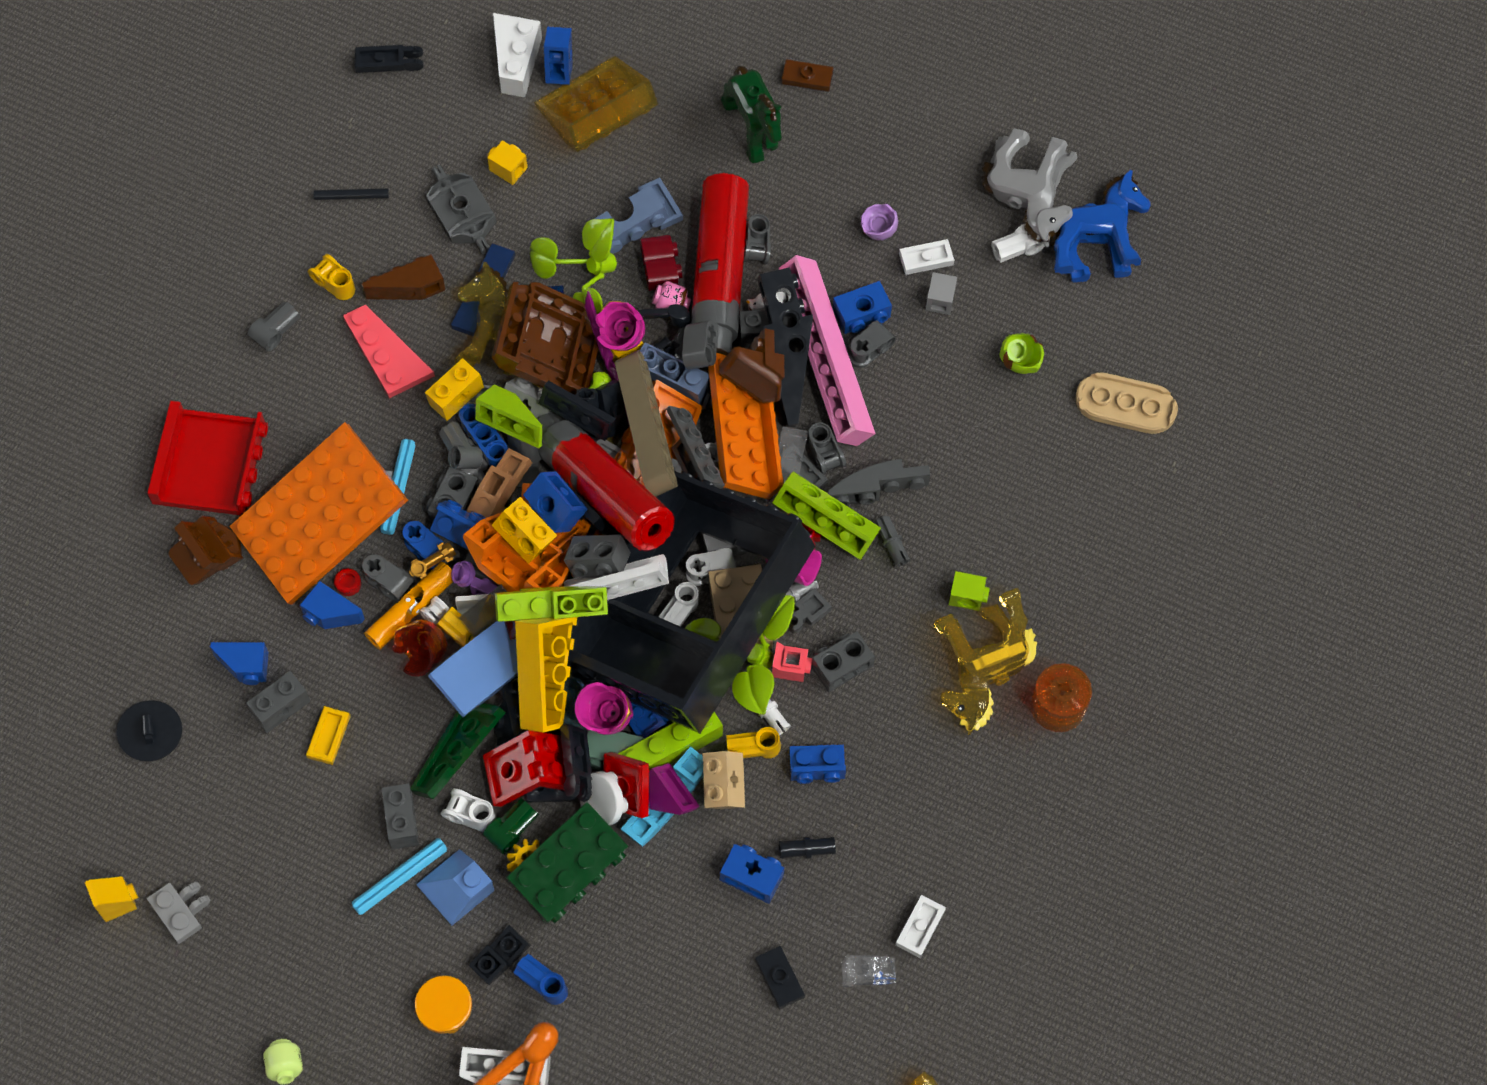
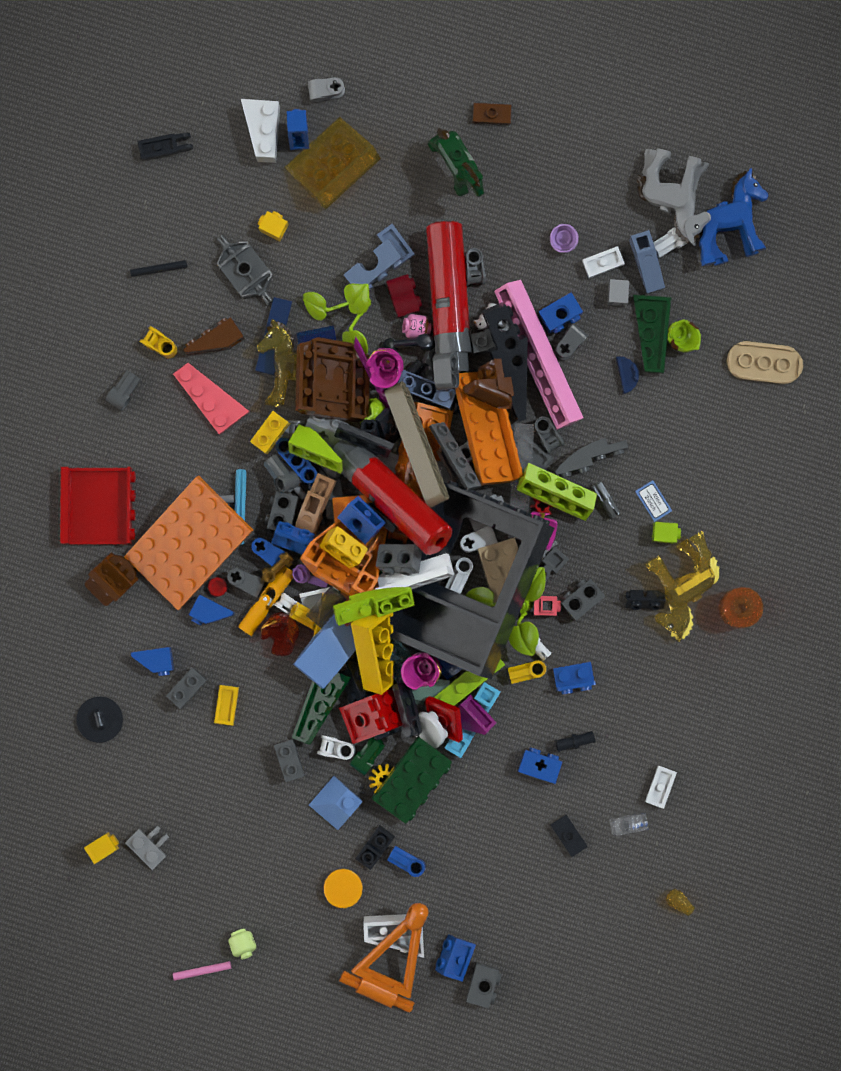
camera: 10 degrees left, 20 degrees up
(399, 876) = (293, 804): medium azure axle -> none
(600, 21) = (323, 89): none -> light grey piece
(723, 780) = (511, 704): tan brick -> none
(919, 674) = (654, 601): none -> black hinge
(942, 393) = (628, 374): none -> dark blue tile
(957, 552) = (653, 501): none -> sticker
(983, 259) = (647, 261): none -> sand blue slope
(983, 334) = (653, 327): none -> dark green wing

